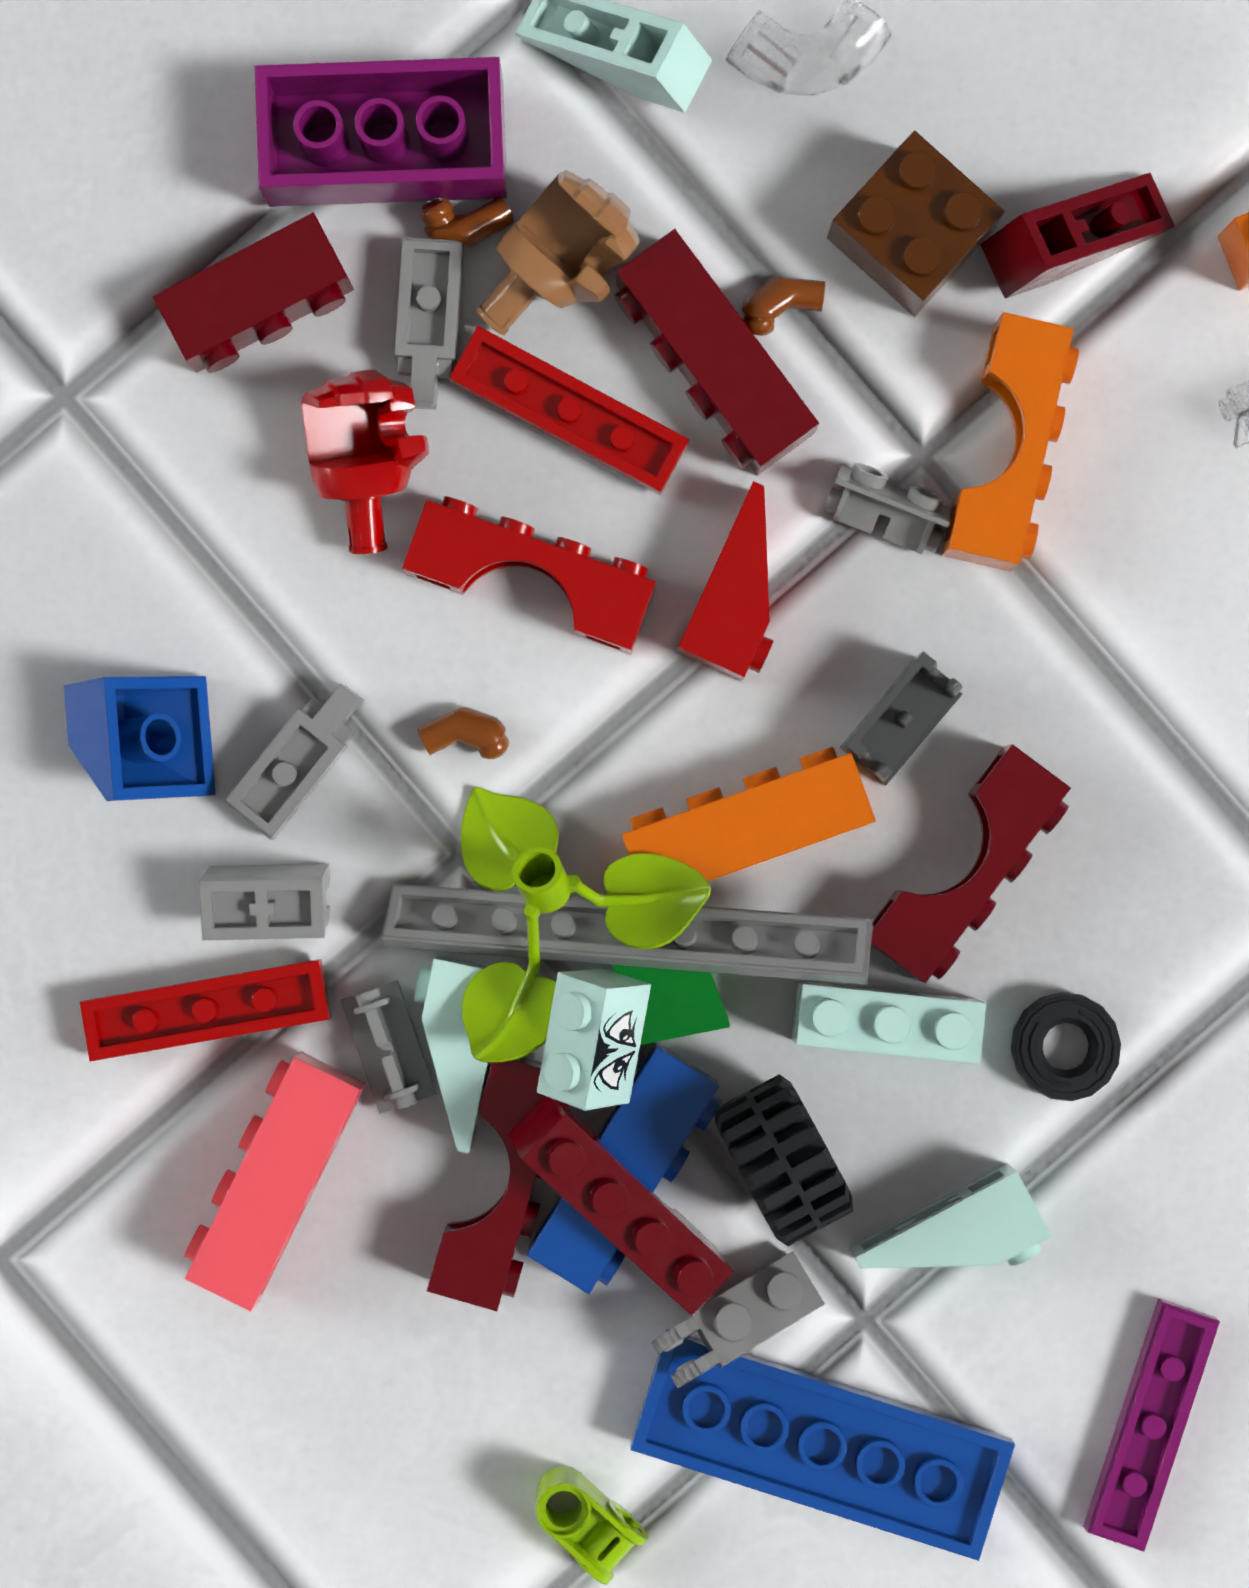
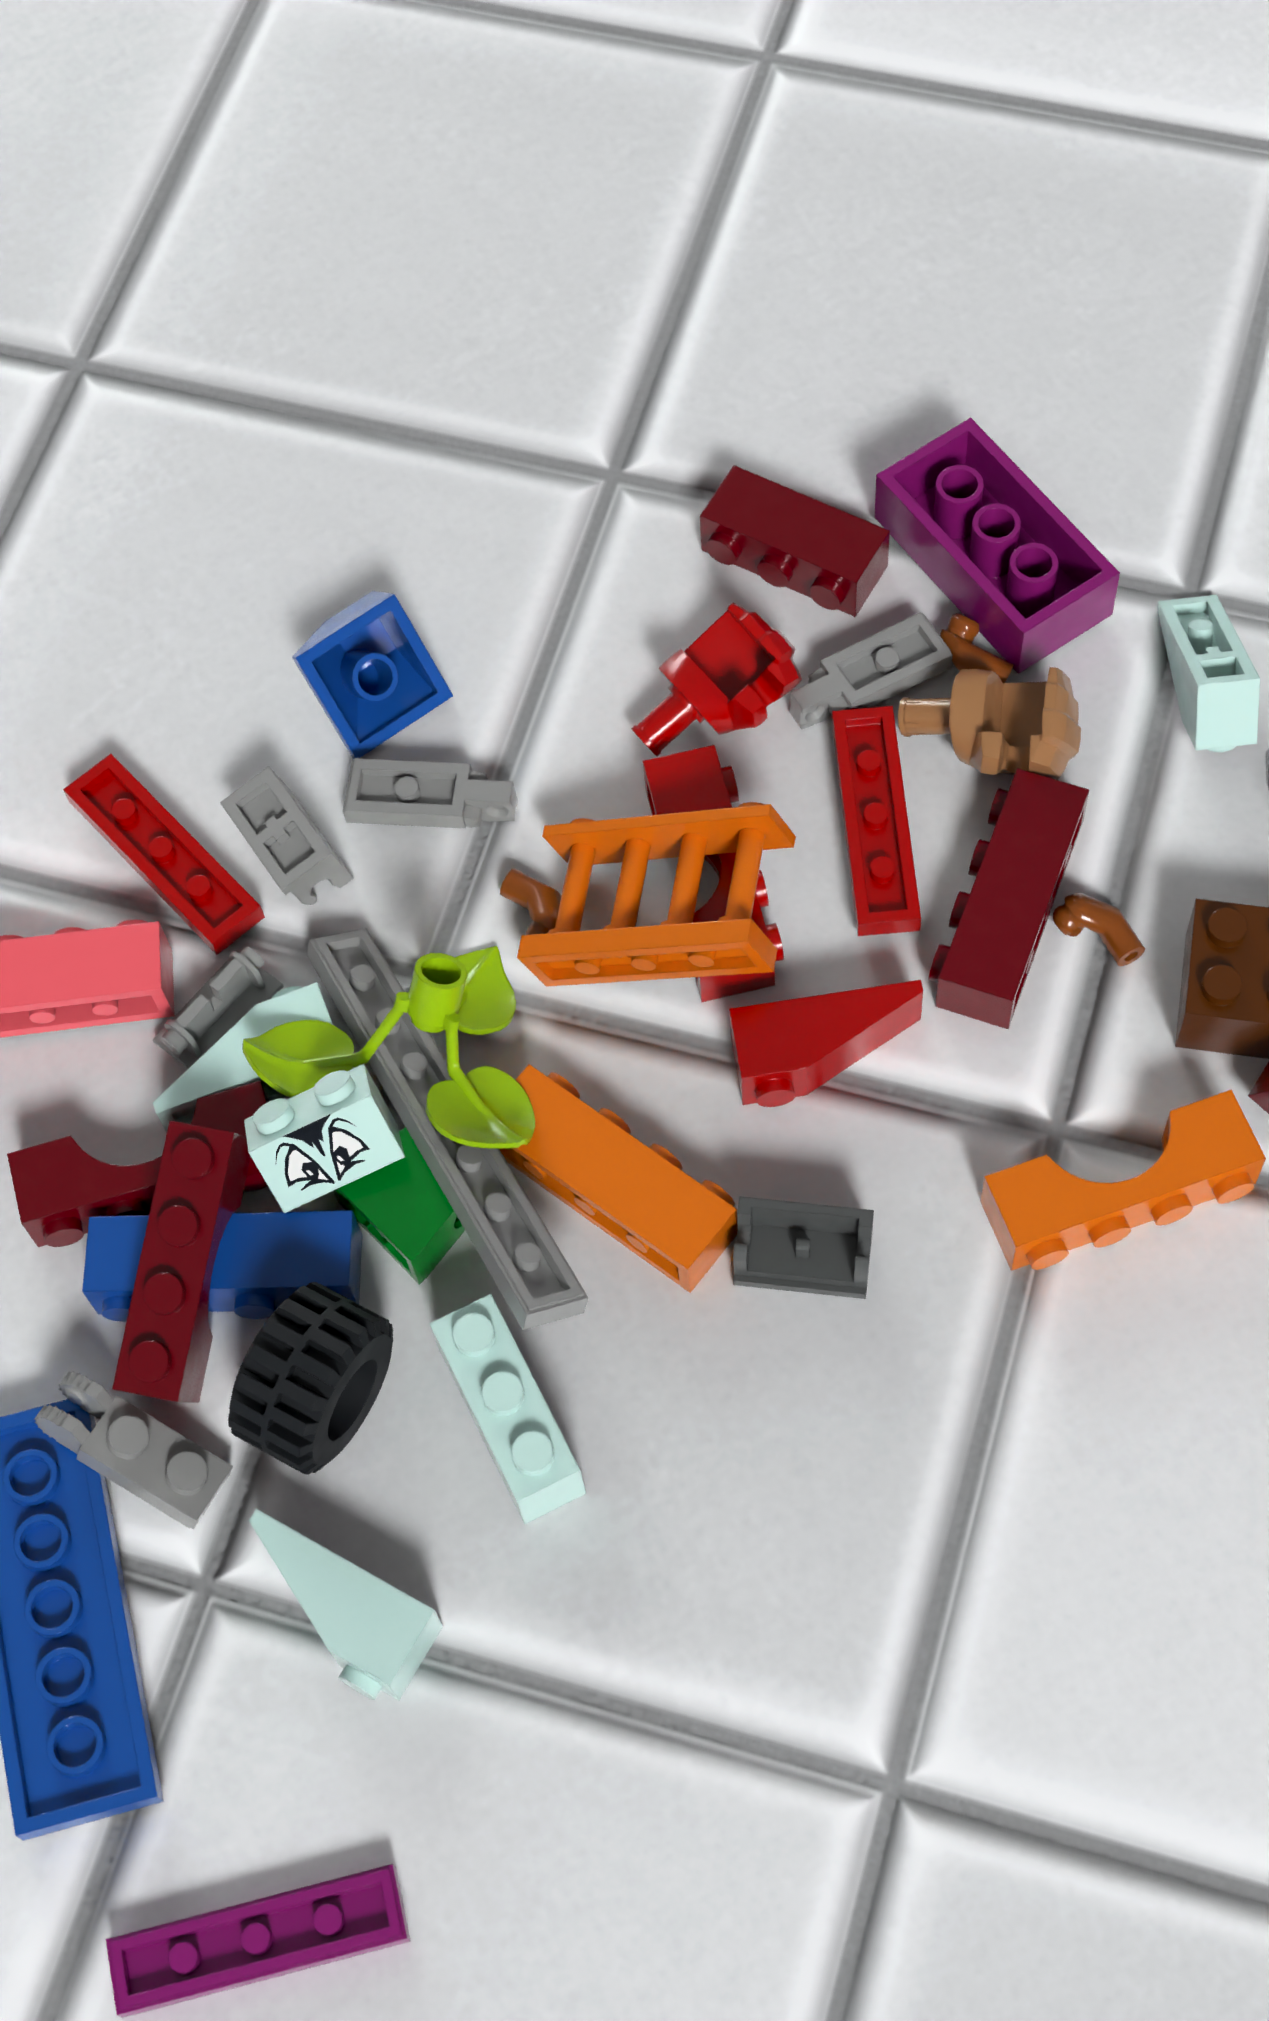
camera: 65 degrees right, 25 degrees down
(601, 653) = (676, 945): none -> orange fence
(910, 512) = (982, 1095): light grey hinge -> none
(1013, 804) = (787, 1400): dark red arch -> none
(1102, 1049) = (592, 1644): black tyre -> none

